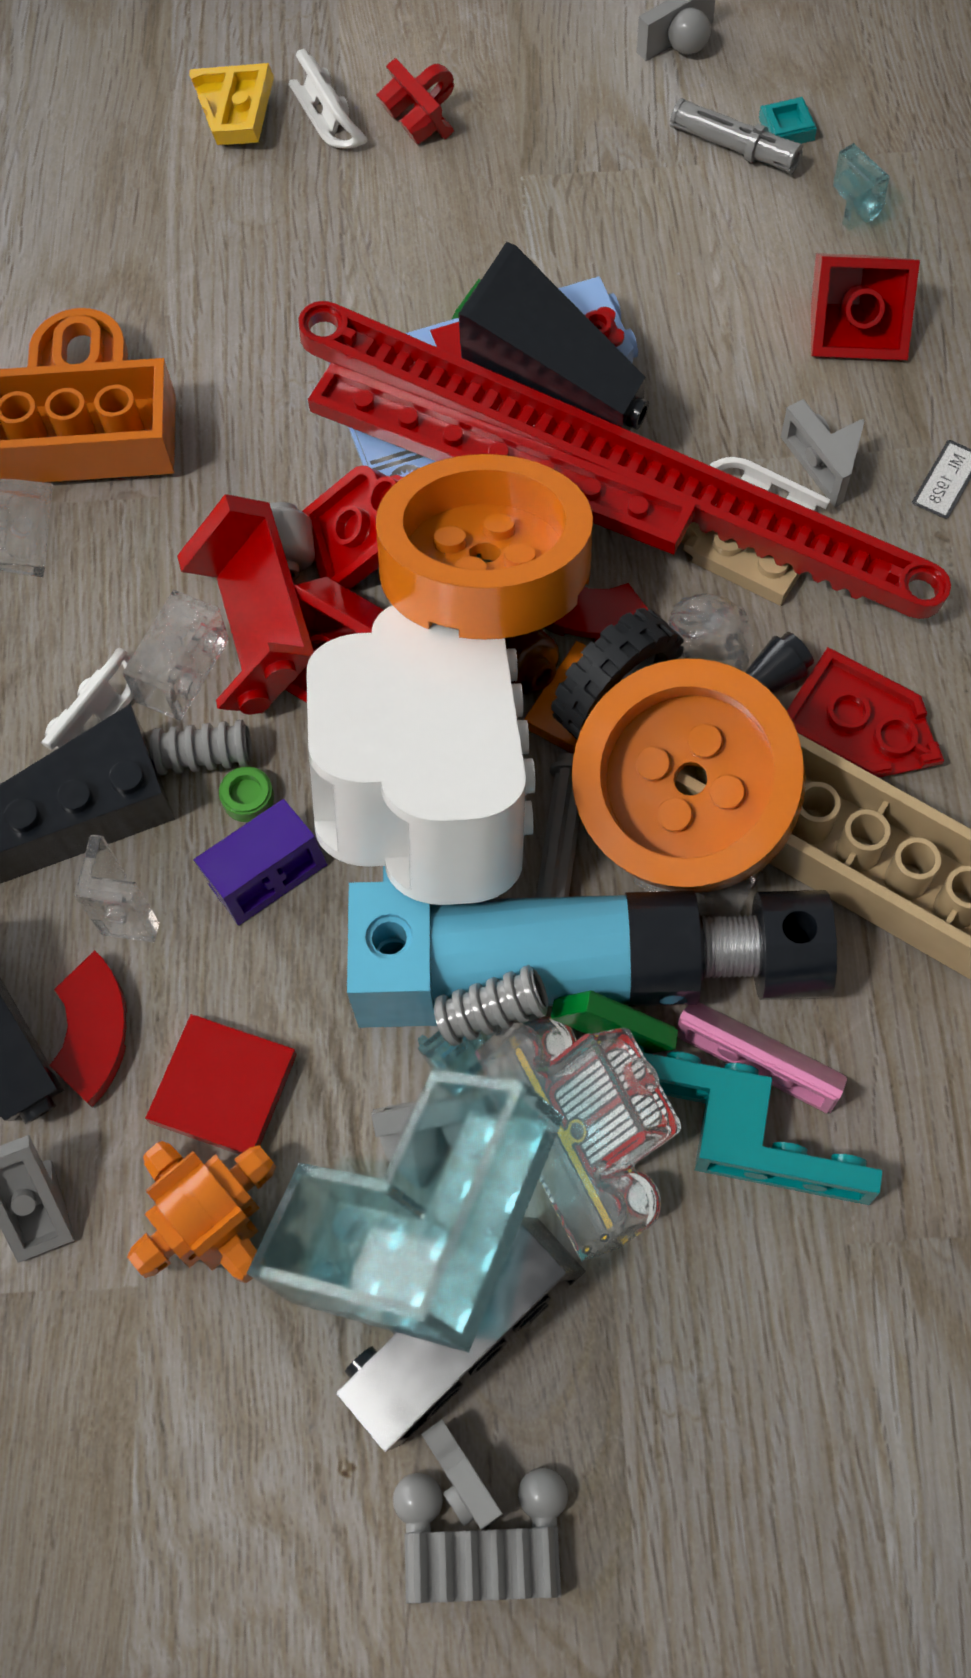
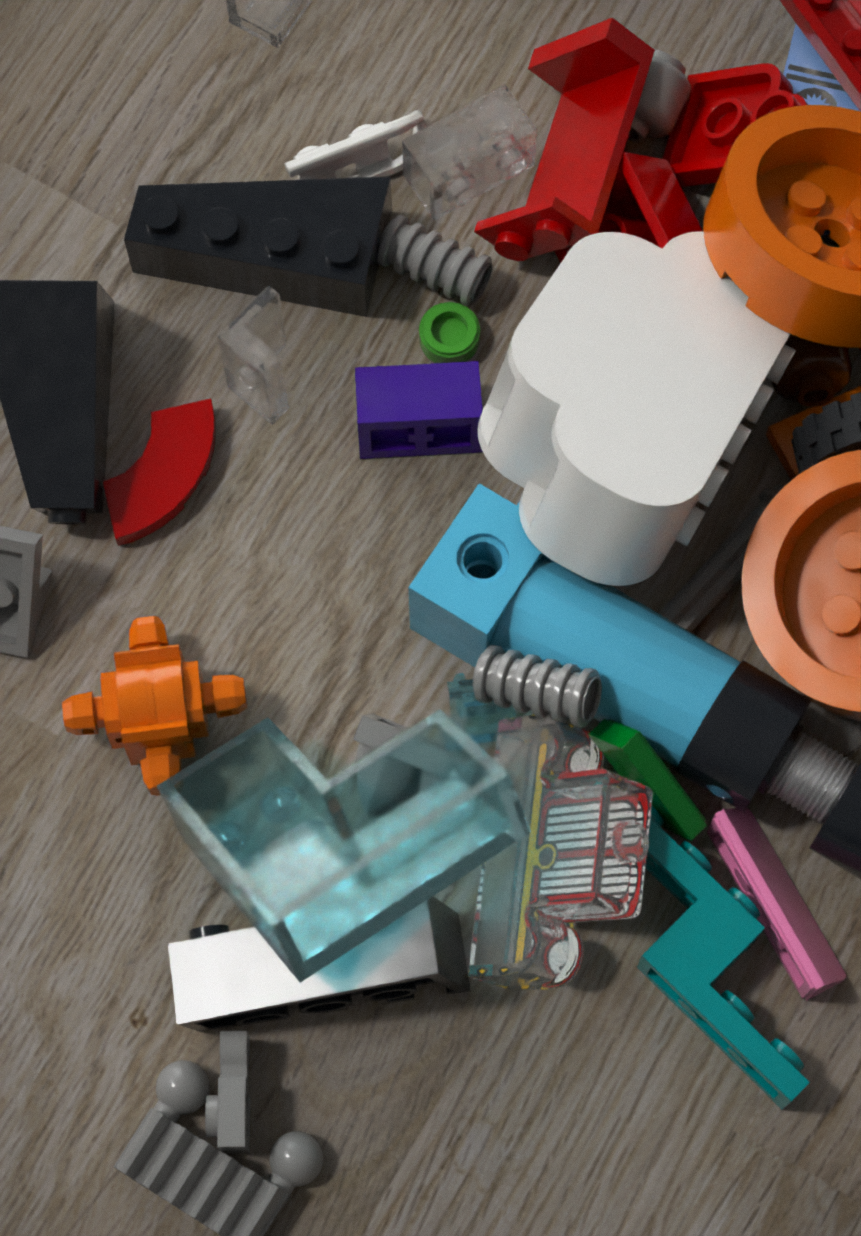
camera: 30 degrees right, 5 degrees up
(221, 1085) = (247, 601): red tile -> none

